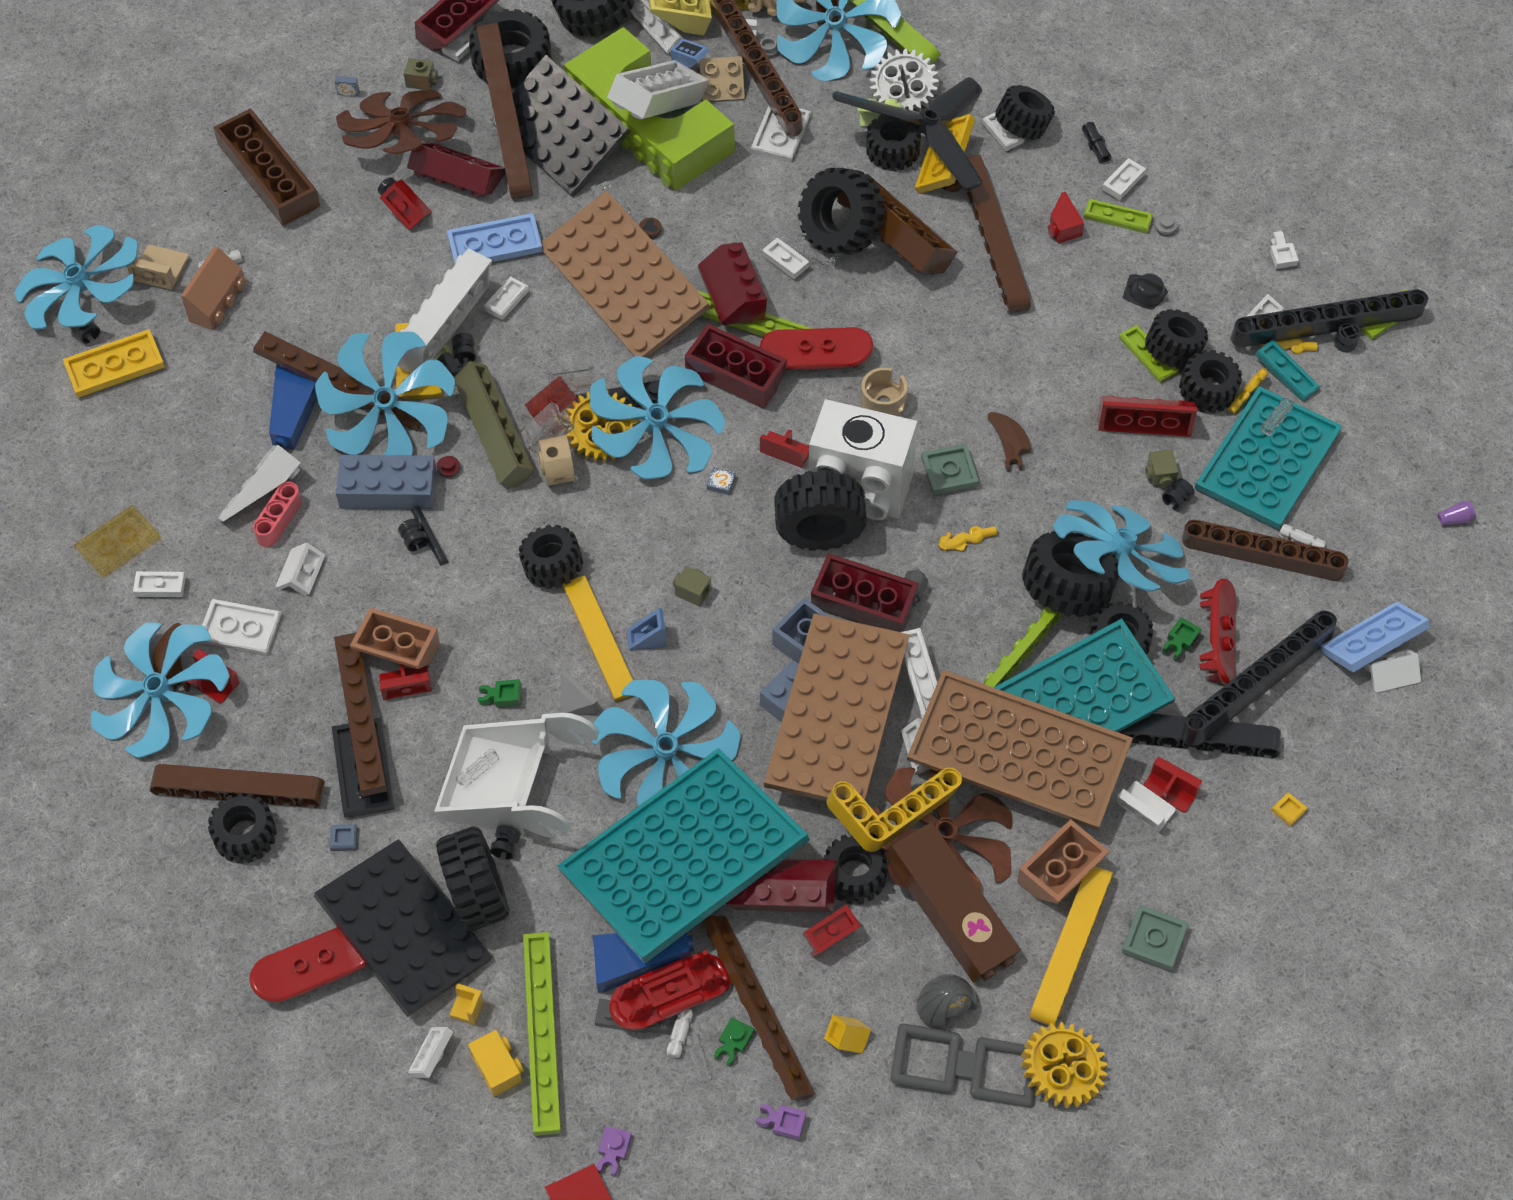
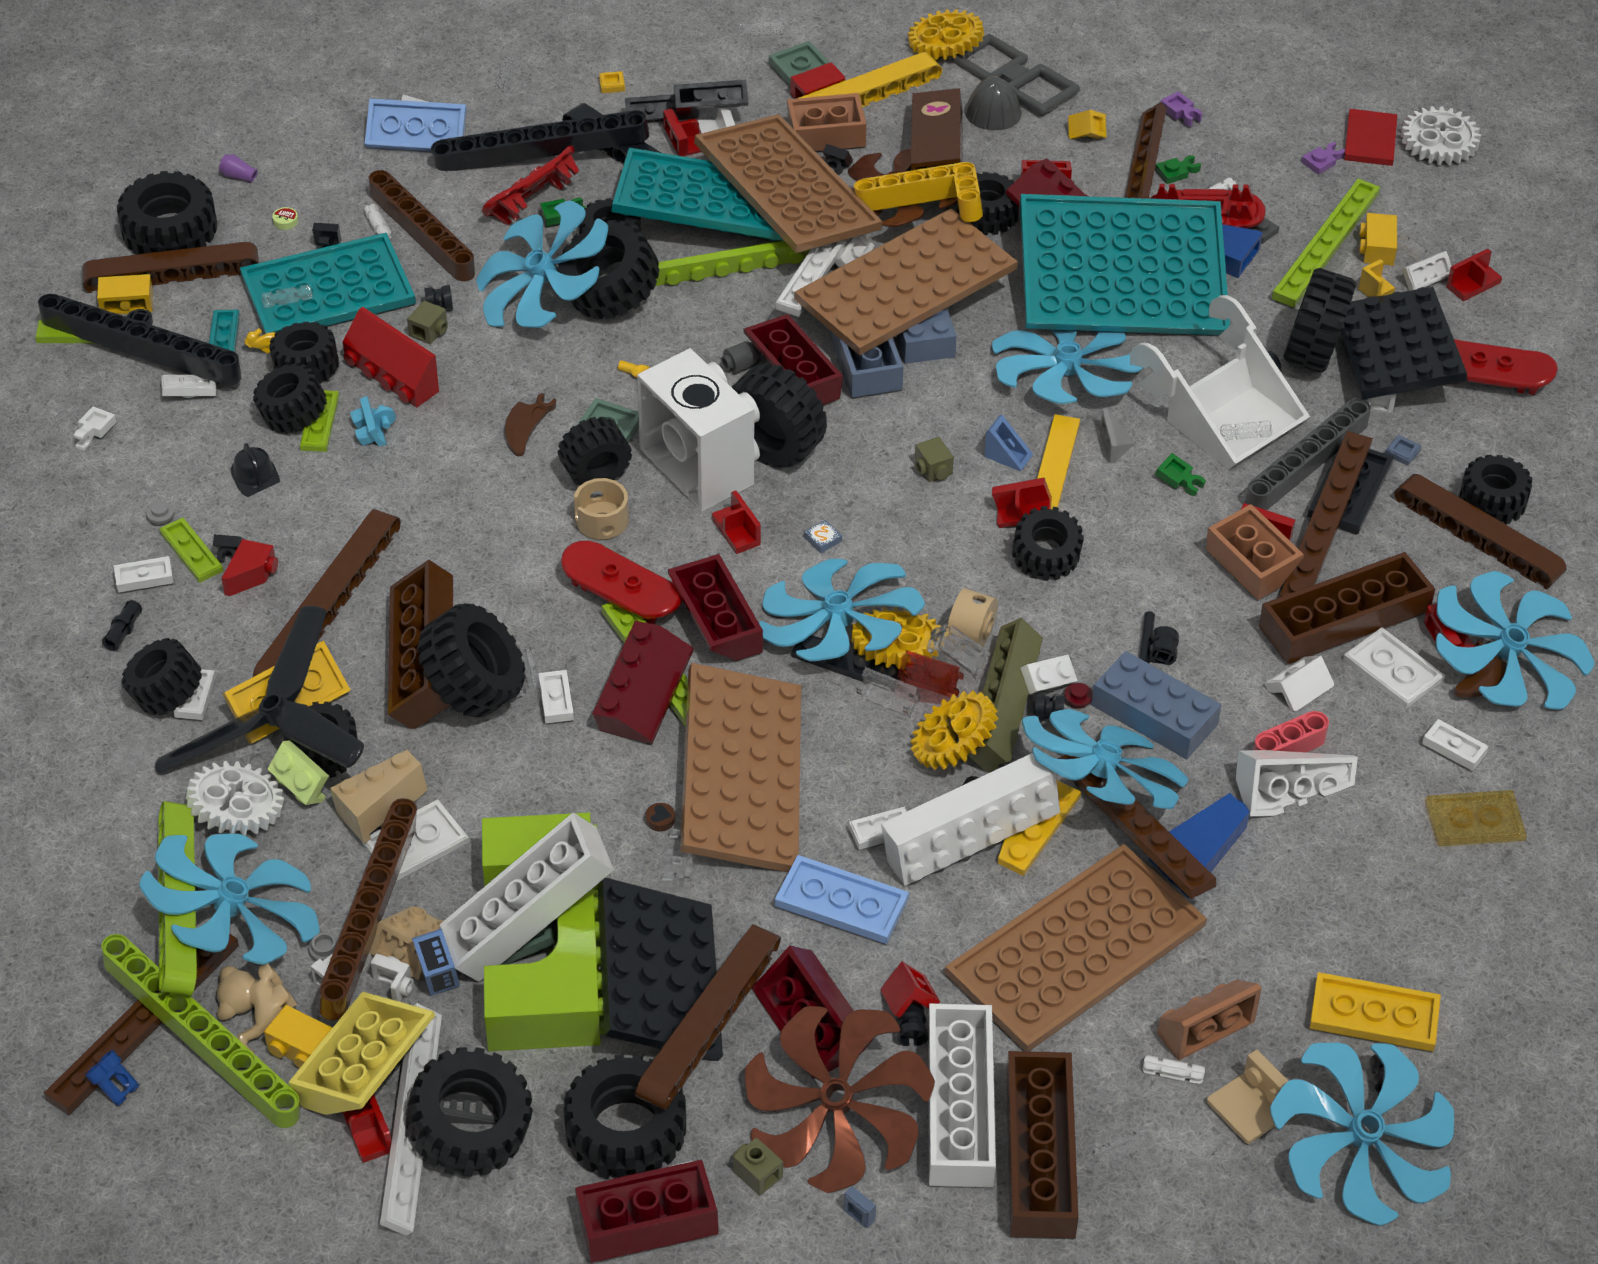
camera: 145 degrees left, 10 degrees down
(296, 640) = (1346, 607): none -> reddish brown brick
(331, 287) = (1075, 947): none -> medium nougat plate
(332, 166) = (963, 1096): none -> white brick
(385, 1074) = (1472, 276): none -> red panel
(413, 763) = (1307, 454): none -> dark grey beam
(460, 439) = (1046, 705): none -> black wheel
(475, 457) = (1048, 674): none -> white plate
(504, 370) = (971, 719): none -> yellow gear
(596, 584) = (1019, 498): none -> red panel
(717, 49) = (393, 972): none -> white bracket
(823, 127) = (368, 795): none -> tan wedge
(931, 415) = (594, 450): none -> black tyre
(1023, 843) = (837, 156): none -> black tile
(1094, 226) = (226, 544): none -> black tile
(1108, 367) = (374, 421): none -> medium azure hips
(1115, 914) = (815, 80): none -> red panel
(1193, 803) = (690, 98): none -> black bracket
(1318, 493) = (326, 234): none -> black tile
(1371, 498) = (285, 218): none -> yellowish green tile
(1389, 398) = (174, 265): none -> reddish brown beam
(1390, 355) = (125, 293): none -> yellow brick
(1438, 450) = (161, 195): none -> black tyre

